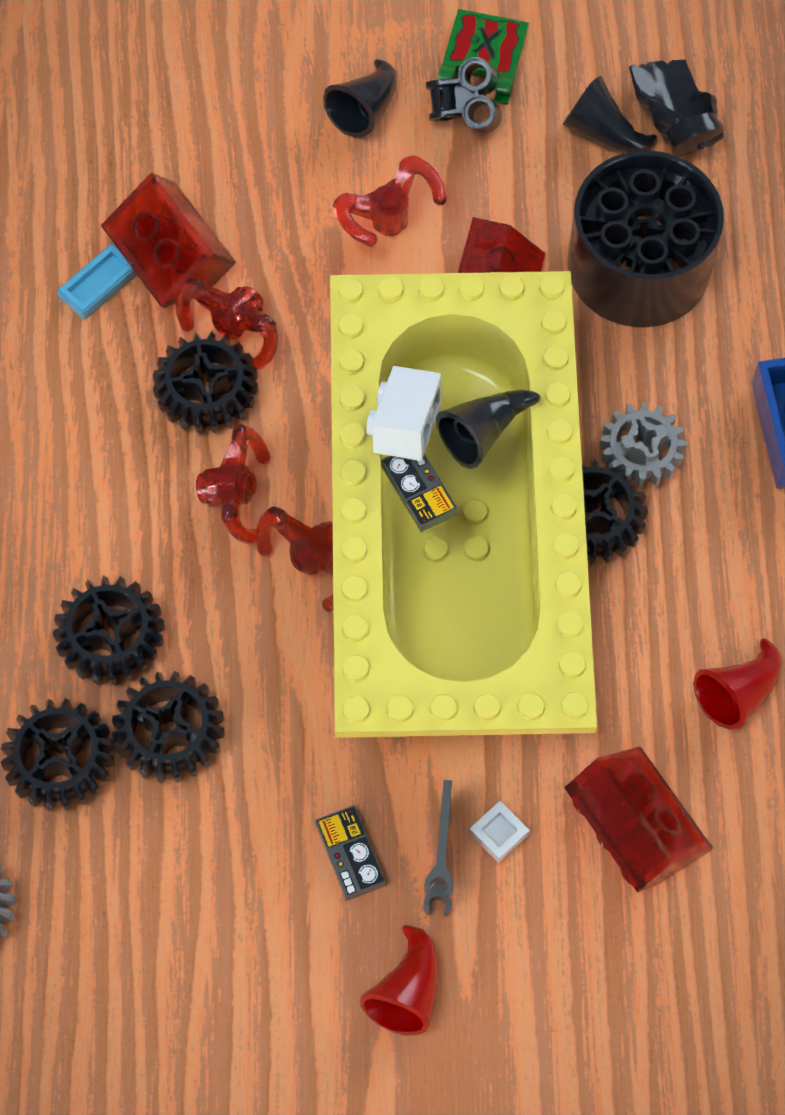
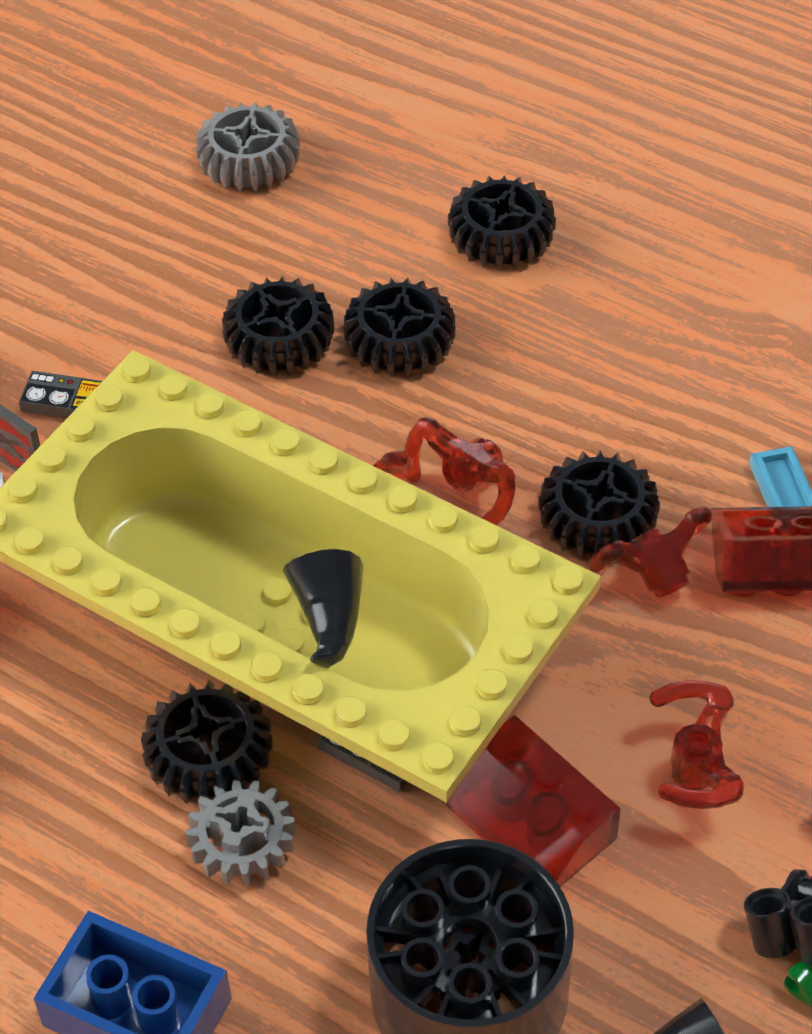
camera: 125 degrees right, 15 degrees down
(79, 728) = (318, 248): black gear -> none
(405, 413) = (385, 538): white brick -> none
(420, 490) = (305, 531): tile -> none

